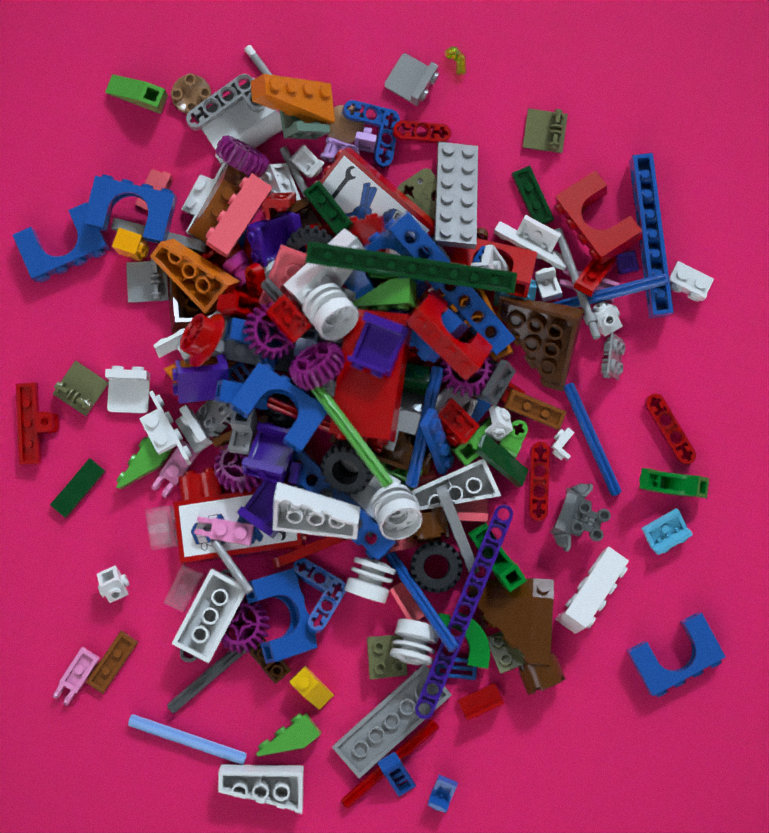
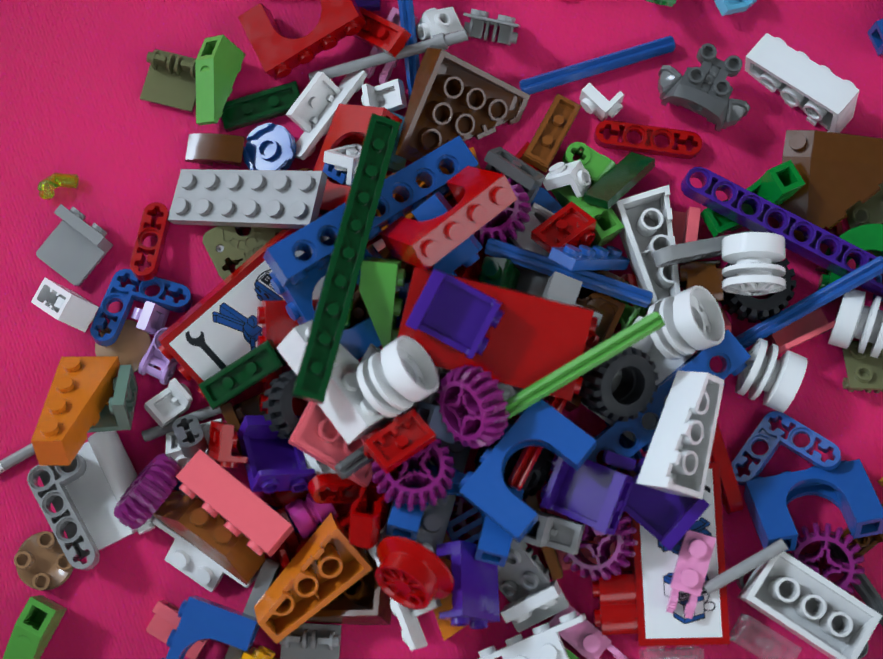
camera: 80 degrees left, 5 degrees down
(283, 177) = (193, 434): none -> dark grey beam
(367, 79) = (64, 305): none -> white brick
(443, 556) = (753, 260): none -> white wheel
(495, 168) = (218, 148): none -> reddish brown slope
(498, 207) = (269, 148): none -> tile
(548, 160) = (215, 74): none -> bright green slope

